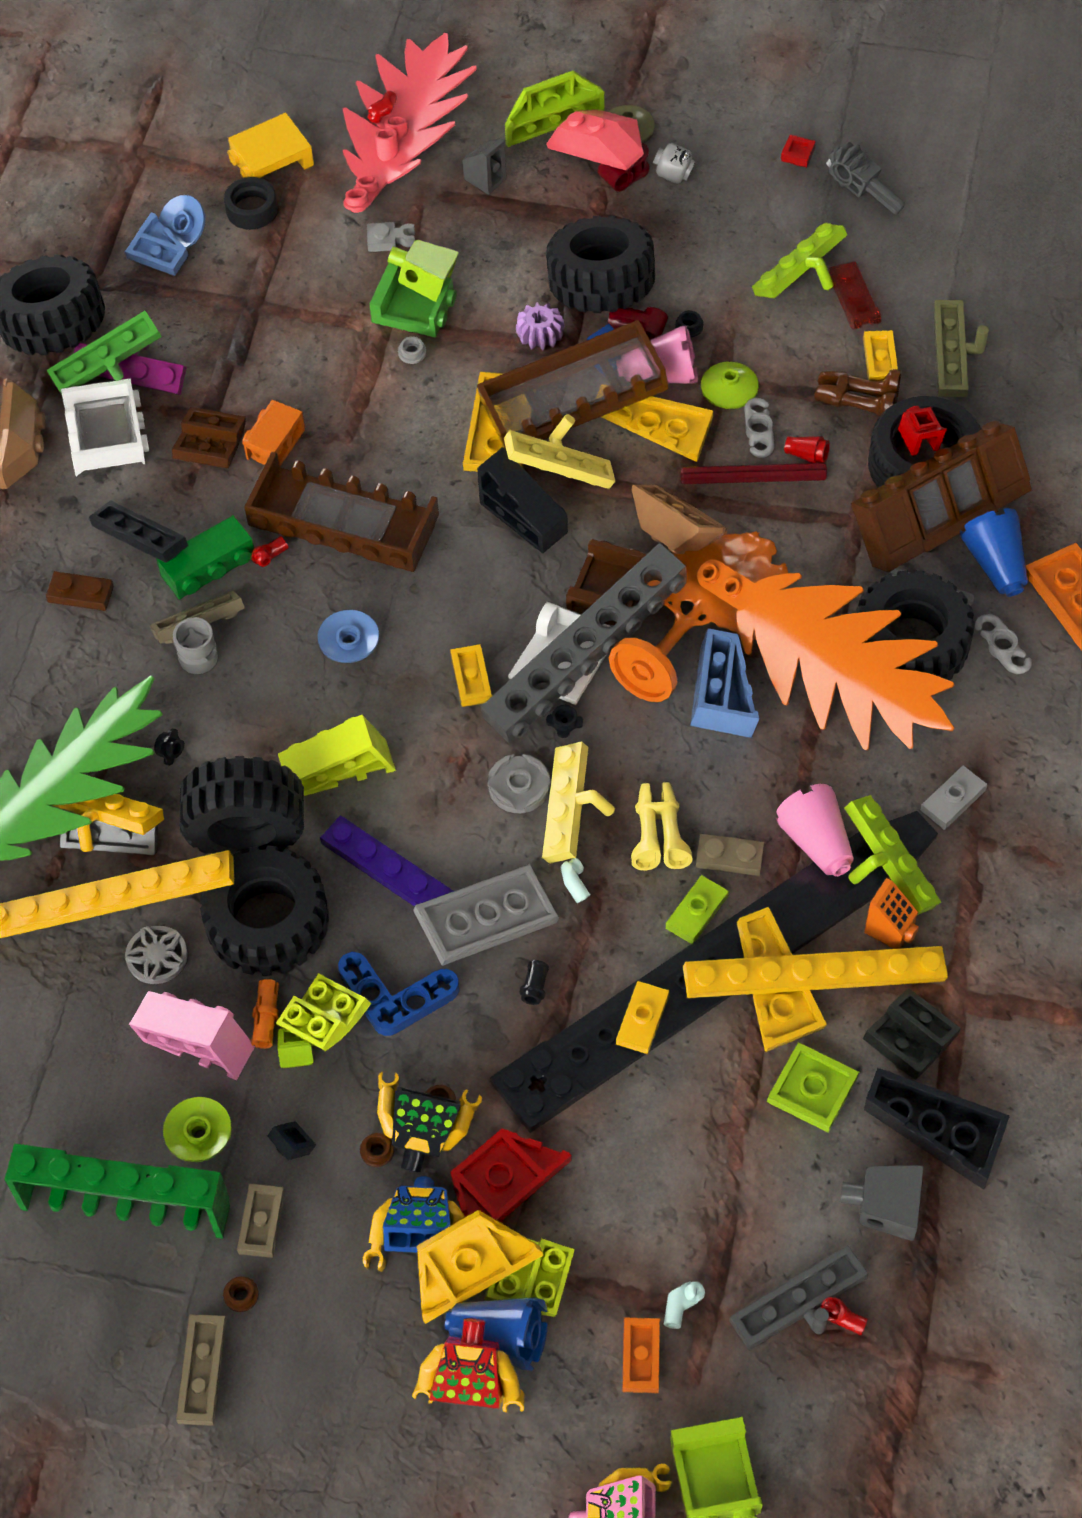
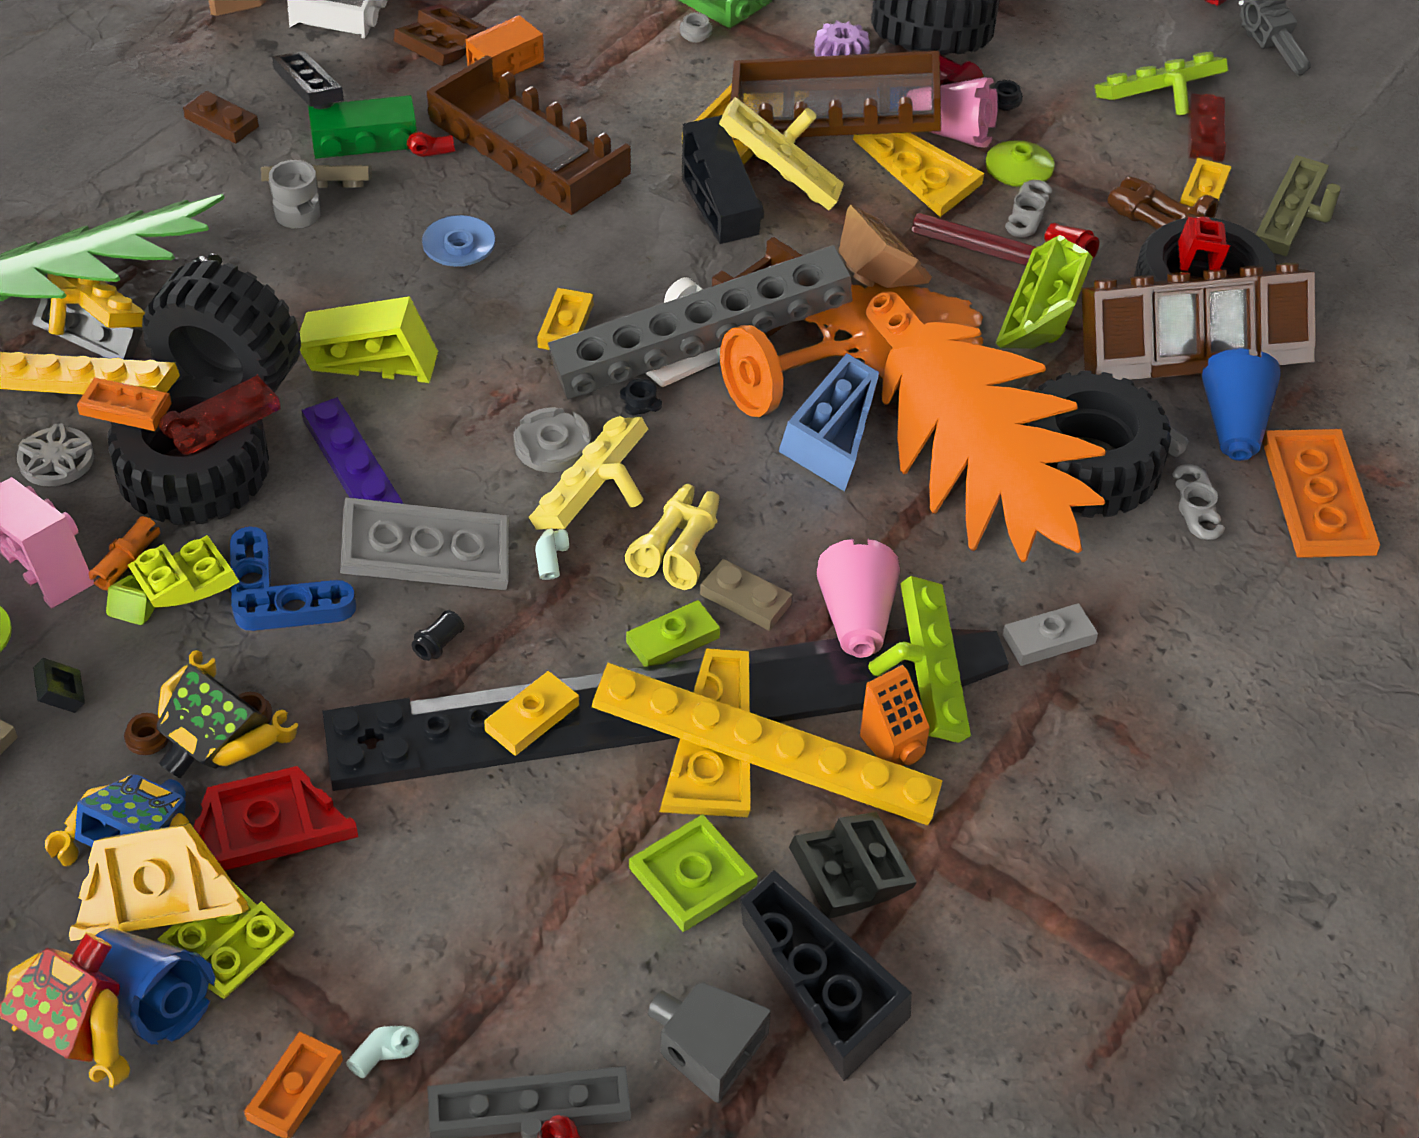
camera: 20 degrees right, 10 degrees down
(211, 900) = (124, 404): none -> orange plate
(287, 878) = (220, 415): none -> clear red plate
(819, 508) = (1045, 295): none -> lime wedge

